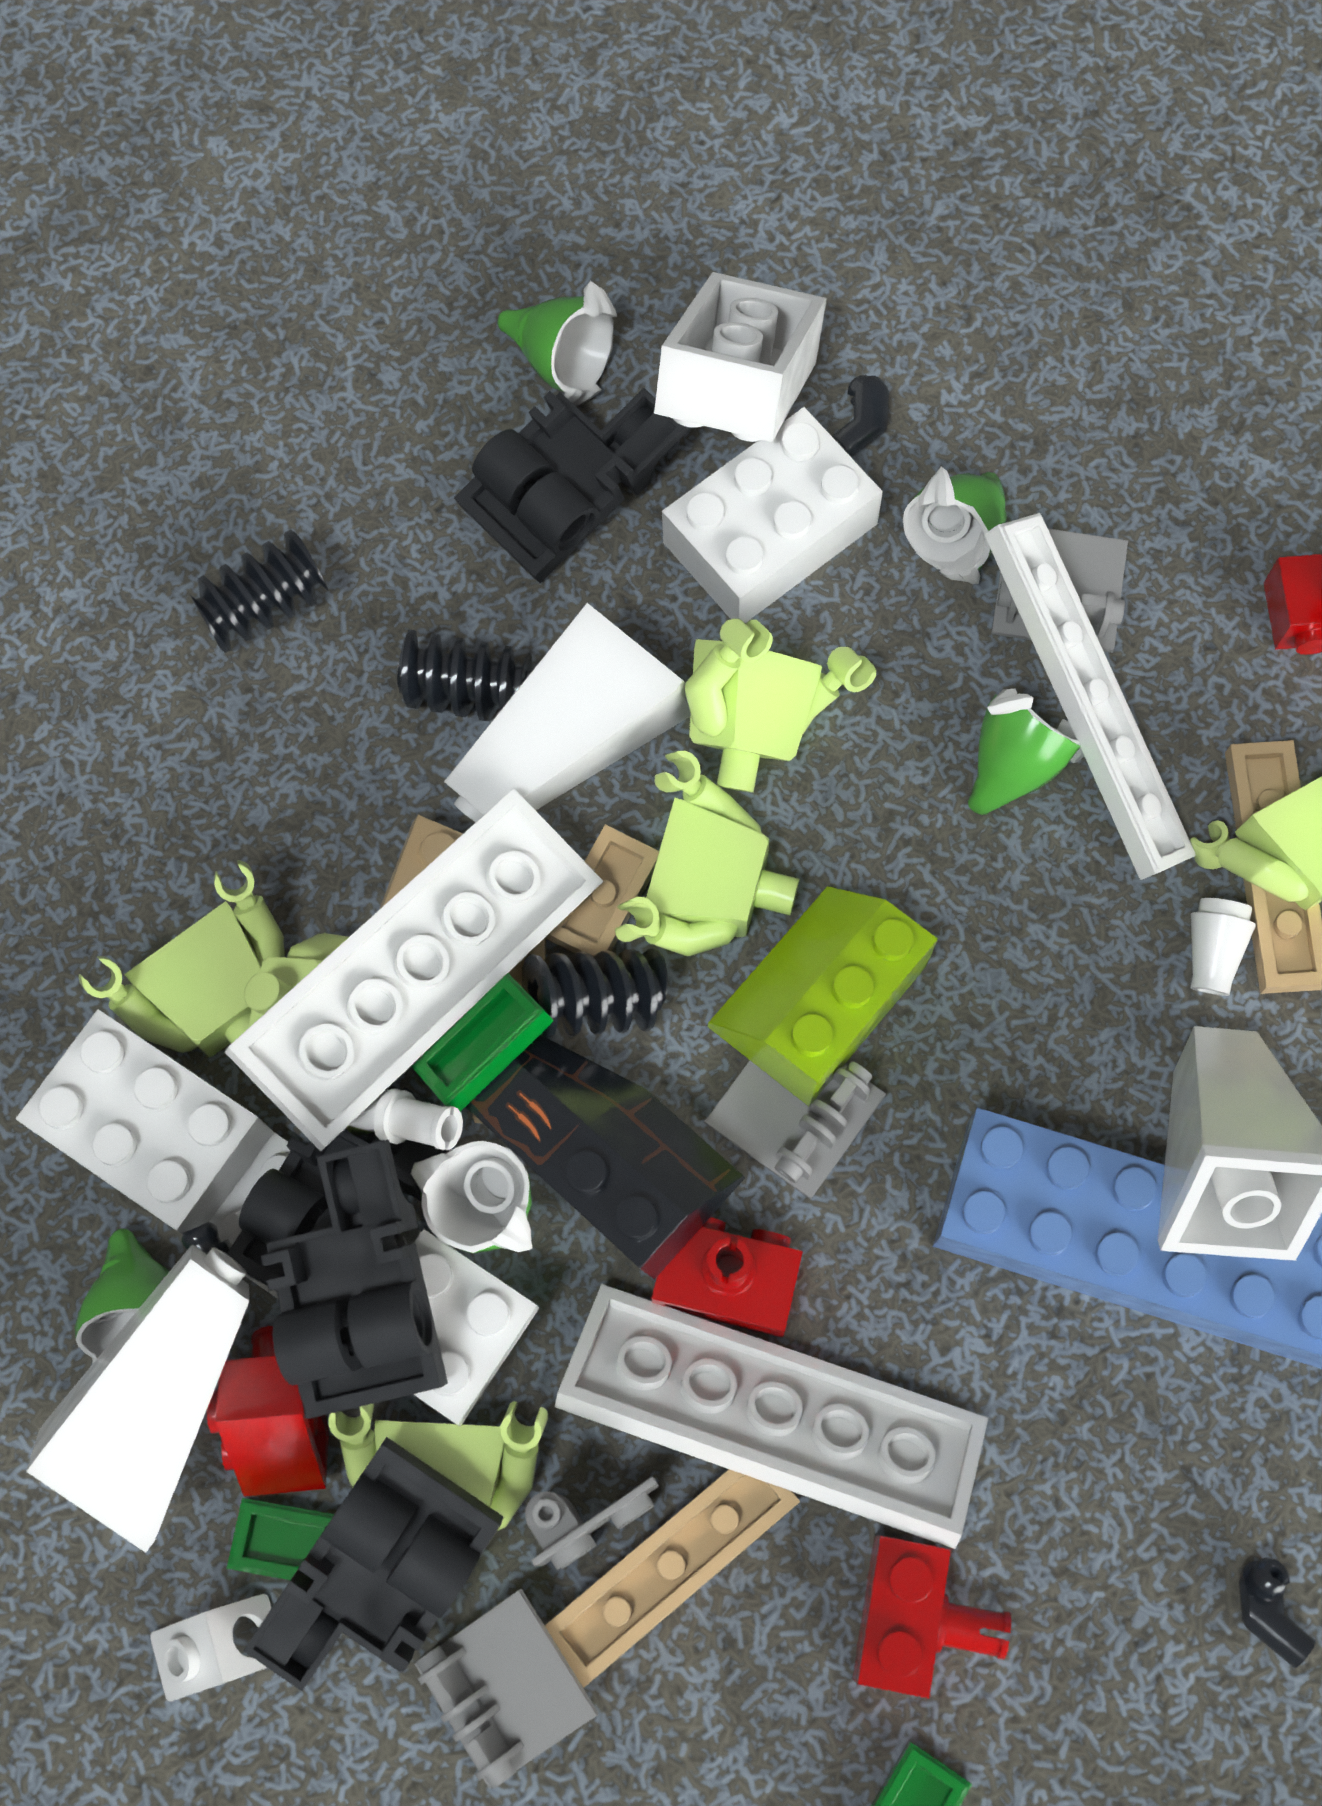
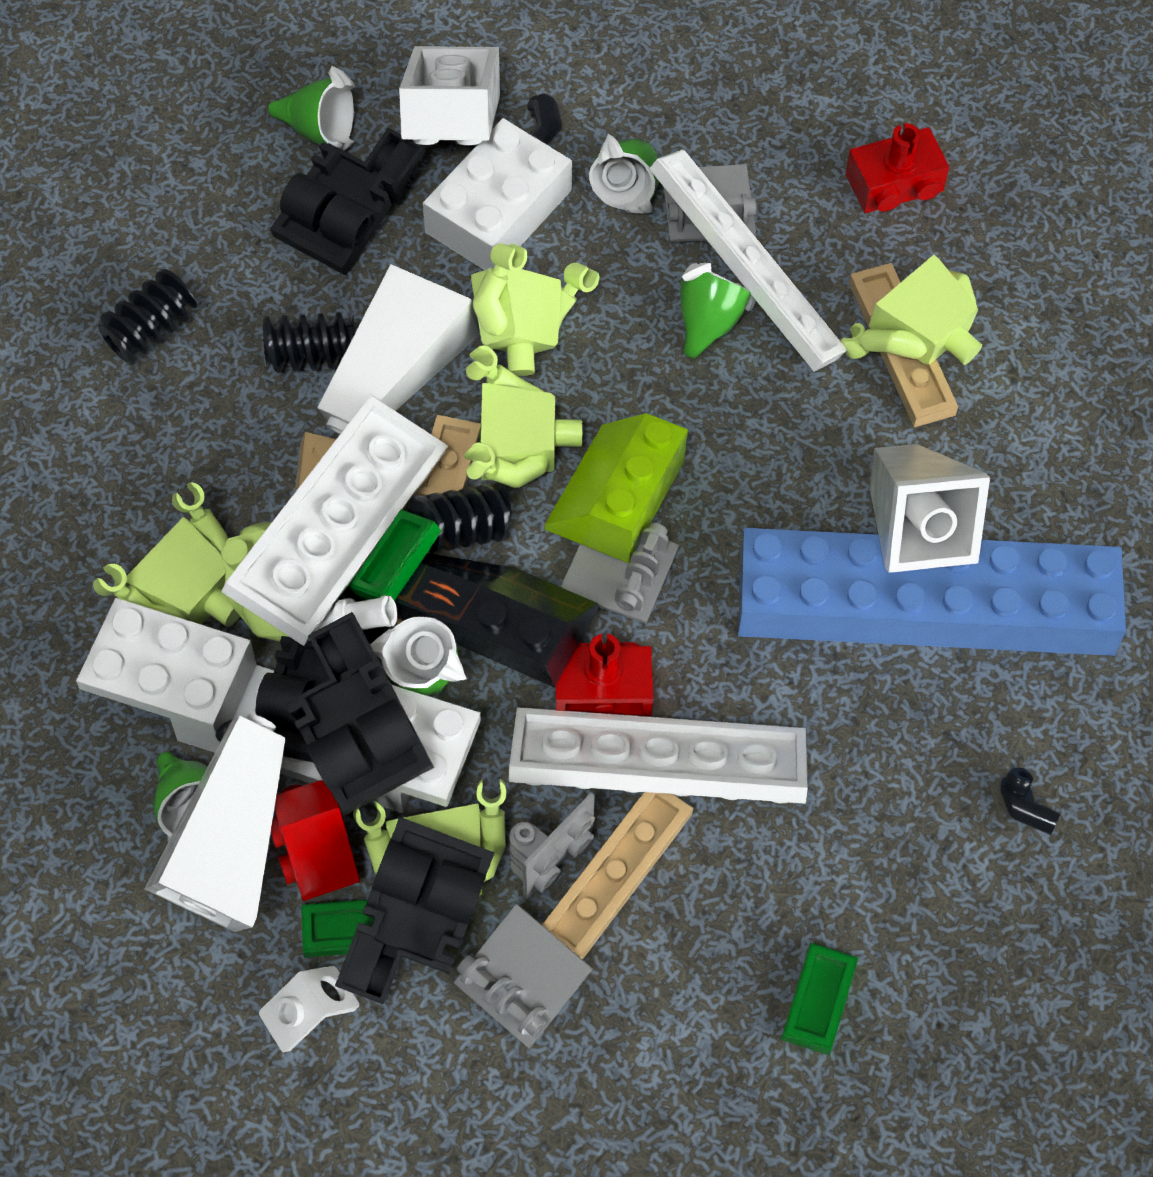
camera: 20 degrees left, 10 degrees down
(911, 1619) = (787, 859): red brick -> none
(1218, 943) = (877, 399): white cone -> none

